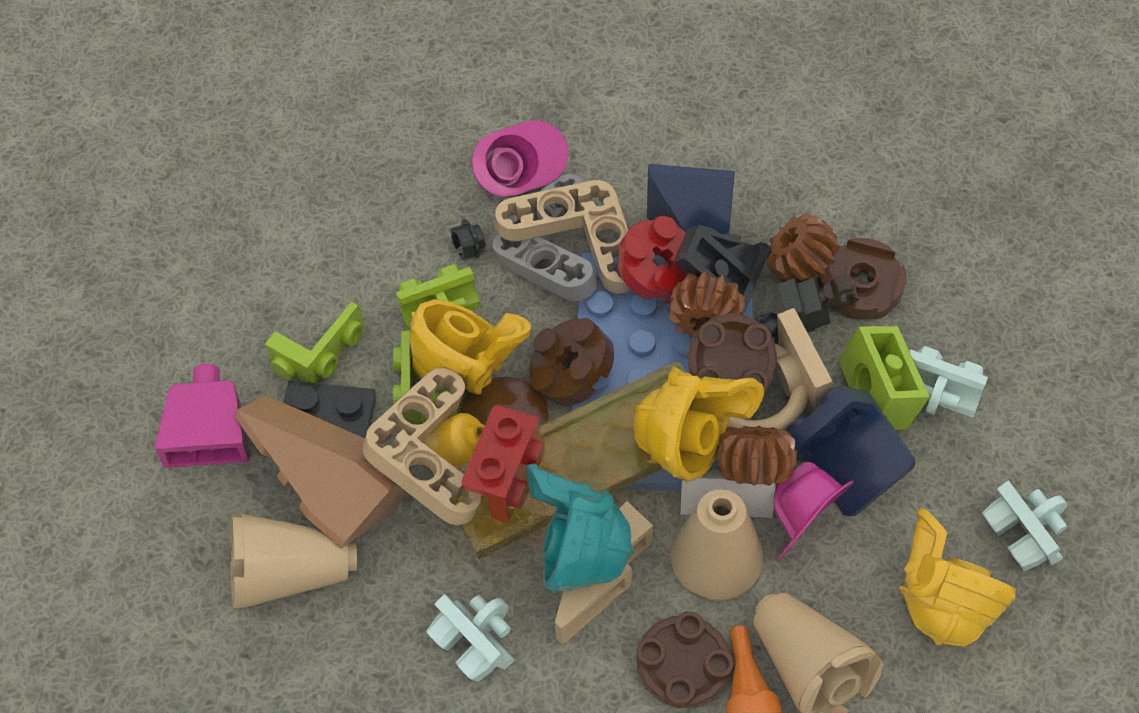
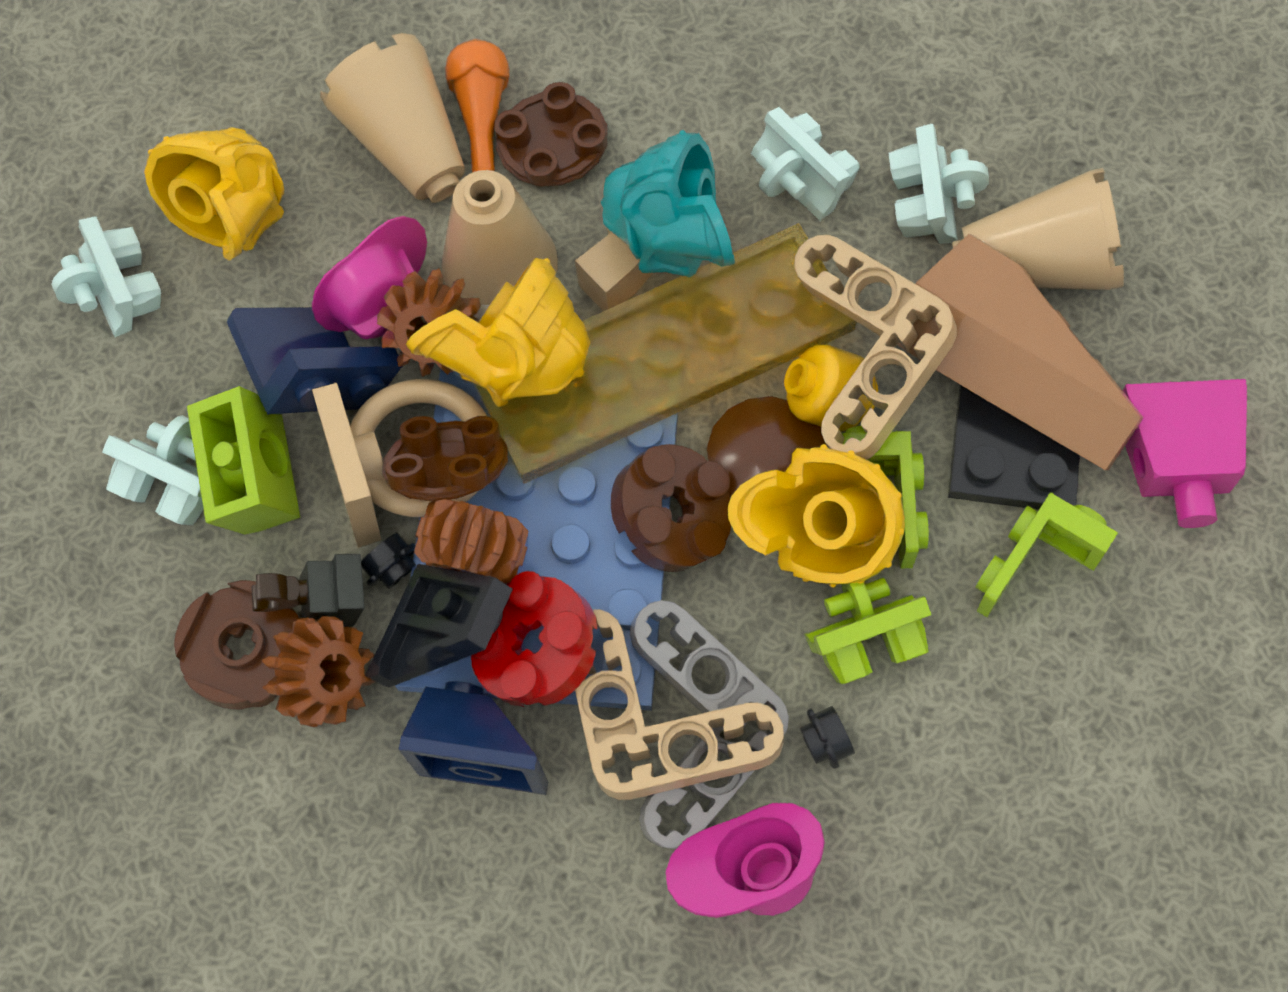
camera: 175 degrees left, 10 degrees up
(367, 597) = (927, 165): none -> light aqua hips
(500, 460) = (765, 291): red bracket -> none

